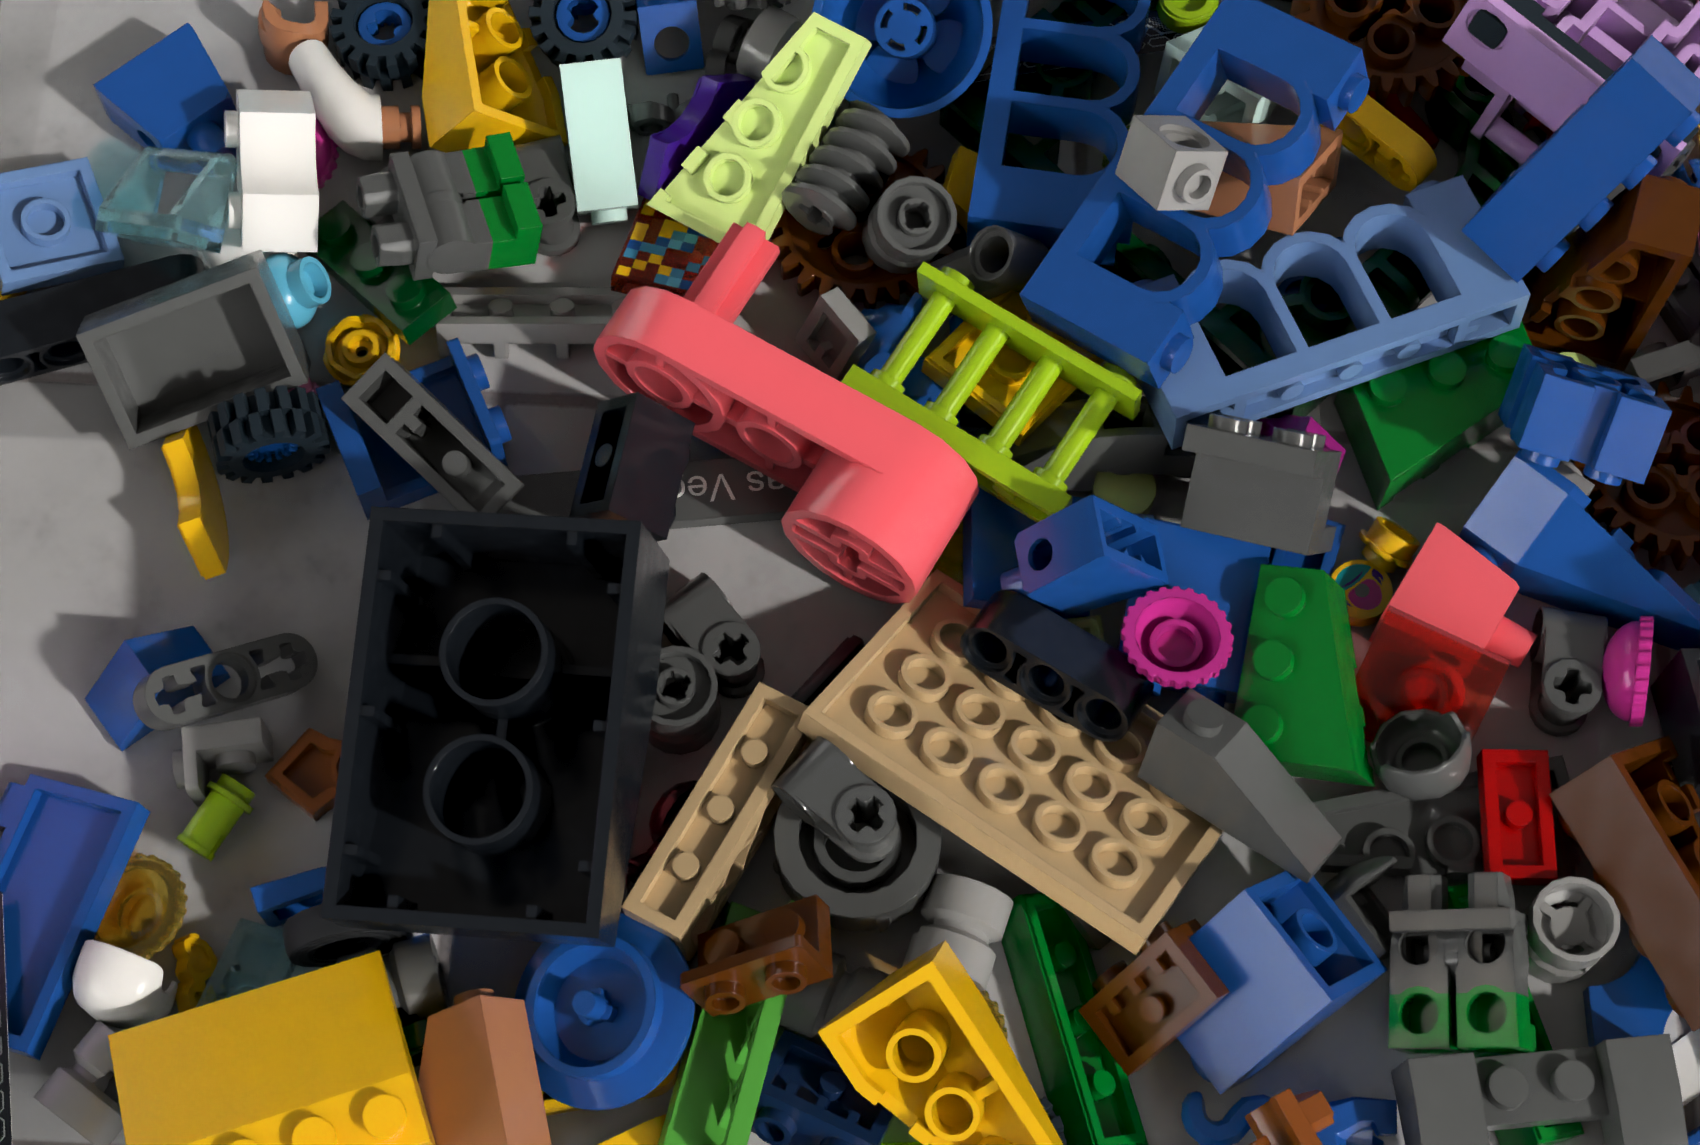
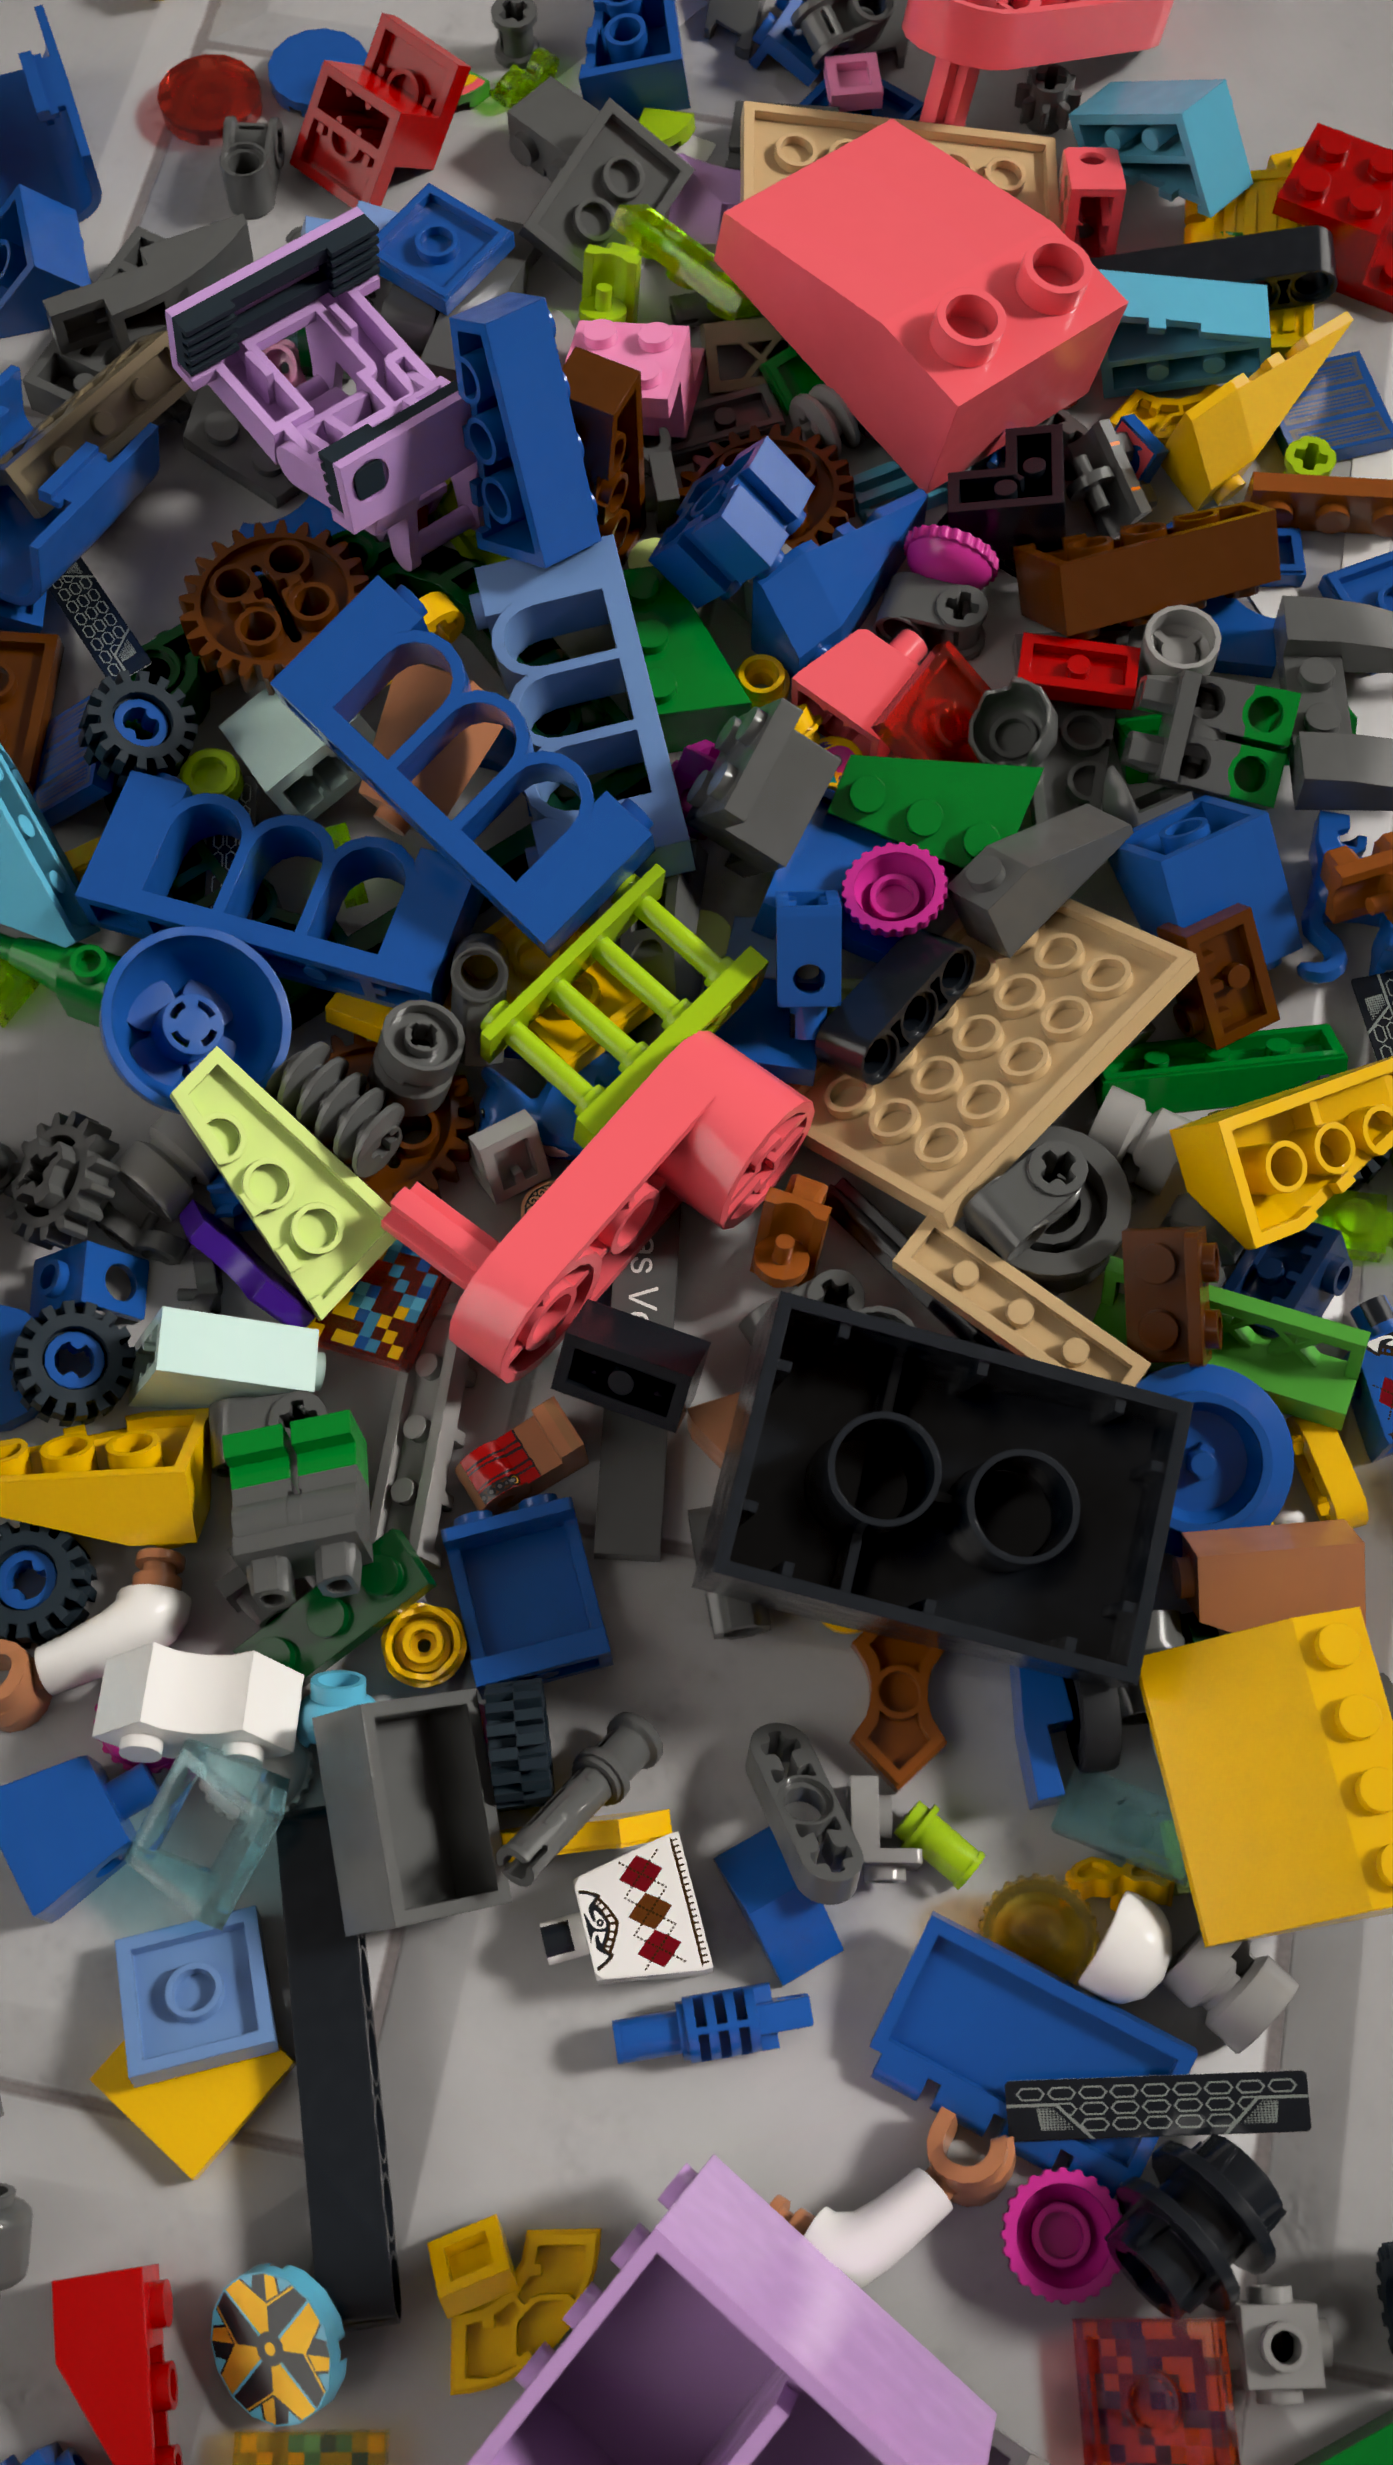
camera: 80 degrees left, 0 degrees up
(43, 641) = (713, 2025): none -> blue hinge
(128, 564) = (634, 1919): none -> white torso
(243, 504) = (598, 1779): none -> dark grey pin
(431, 438) = (561, 1565): dark grey slope -> none
(543, 406) = (523, 1460): none -> leg
(793, 601) = (791, 1233): none -> dark orange hips
(1171, 162) = (456, 764): light grey brick -> none
(1448, 491) = (767, 671): none -> yellow plate

